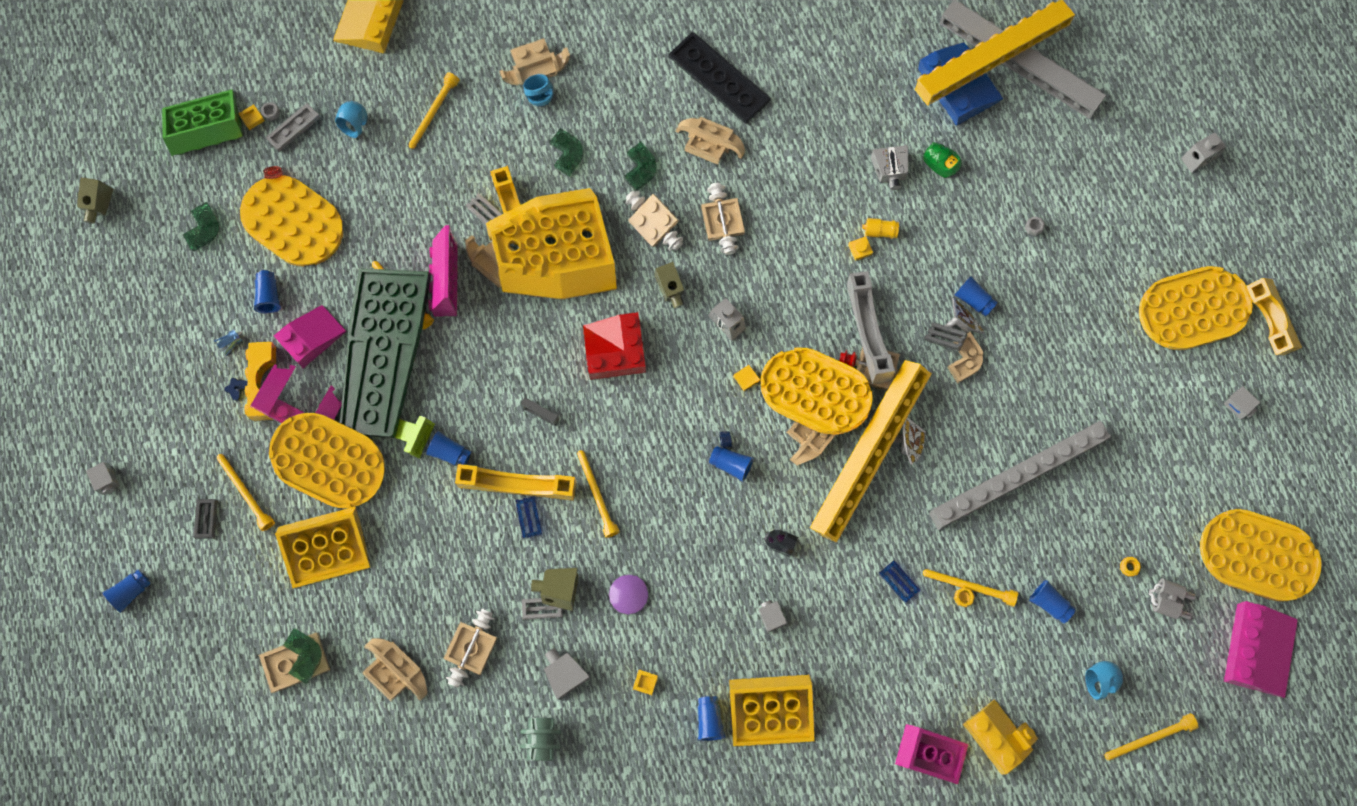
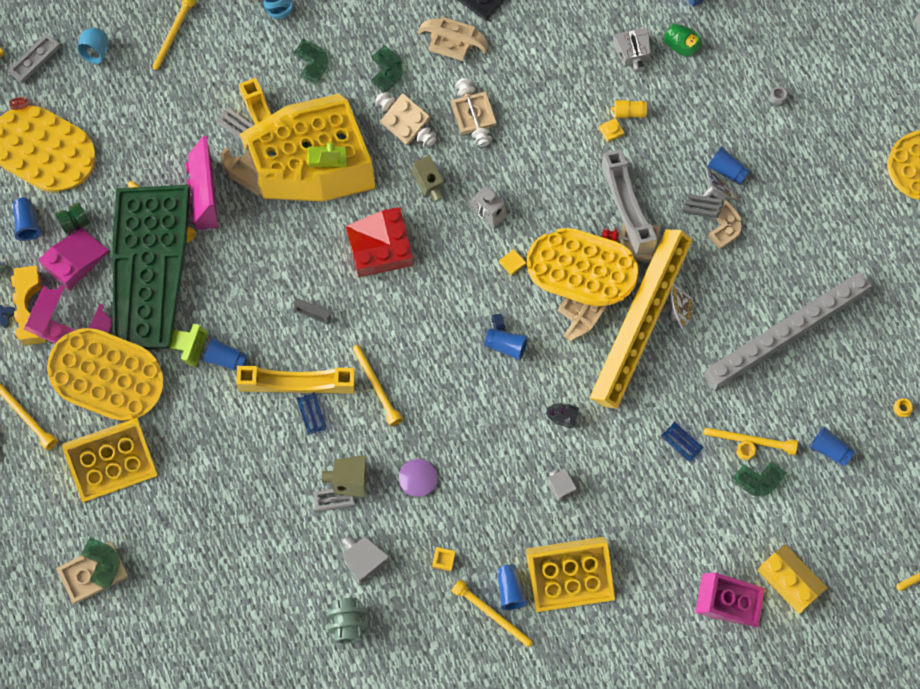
camera: 10 degrees left, 5 degrees down
(270, 111) = (9, 44): light grey tile -> none
(311, 296) = (74, 217): none -> dark green wheel
(393, 670) = (193, 571): tan plate -> none
(470, 648) = (267, 543): tan plate -> none
(569, 254) = (327, 156): none -> lime piece
(661, 716) = (462, 589): none -> yellow piece
(974, 634) = (759, 484): none -> clear green plate
(1025, 736) = (818, 574): yellow plate -> none
(1109, 677) = (891, 509): dark azure helmet -> none

